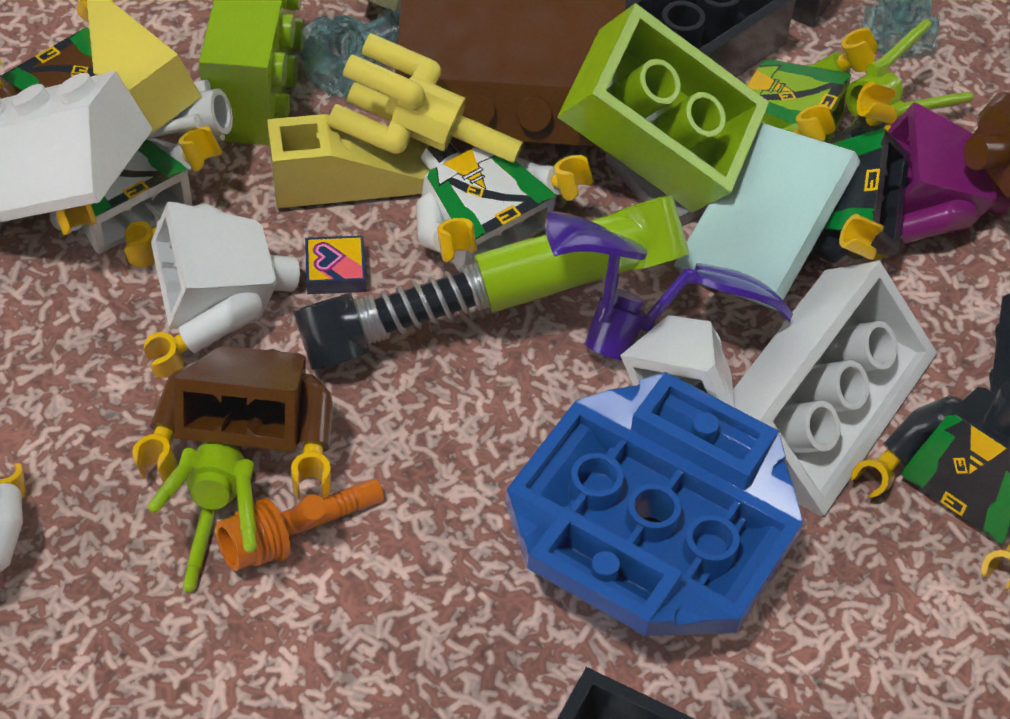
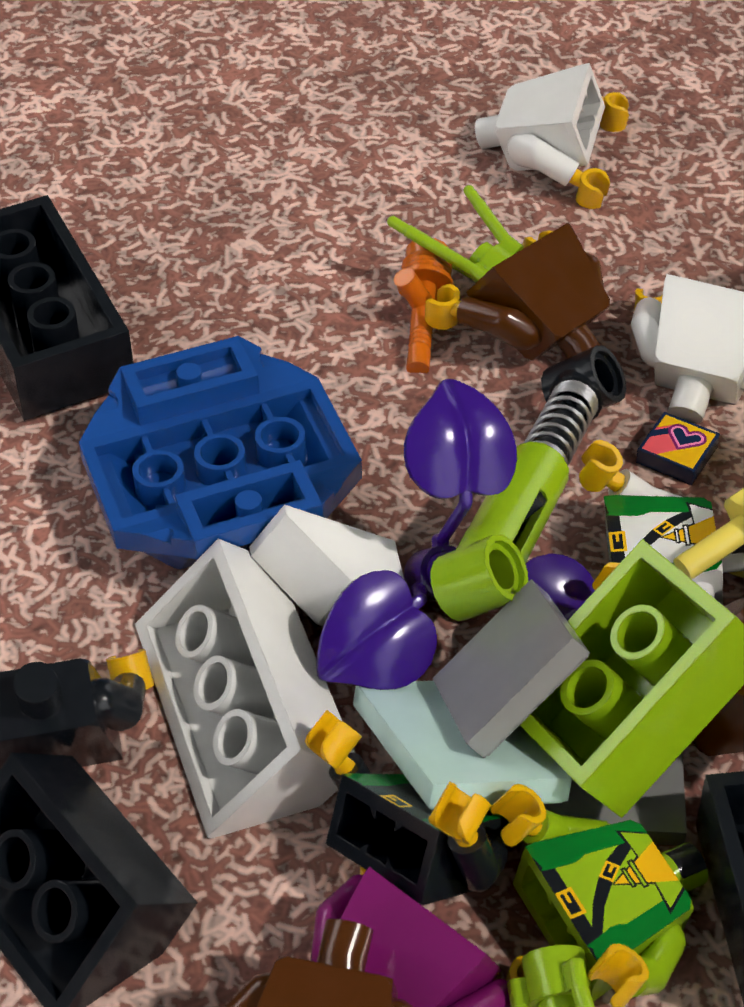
camera: 130 degrees right, 5 degrees down
(718, 173) = (509, 668): none -> light grey tile

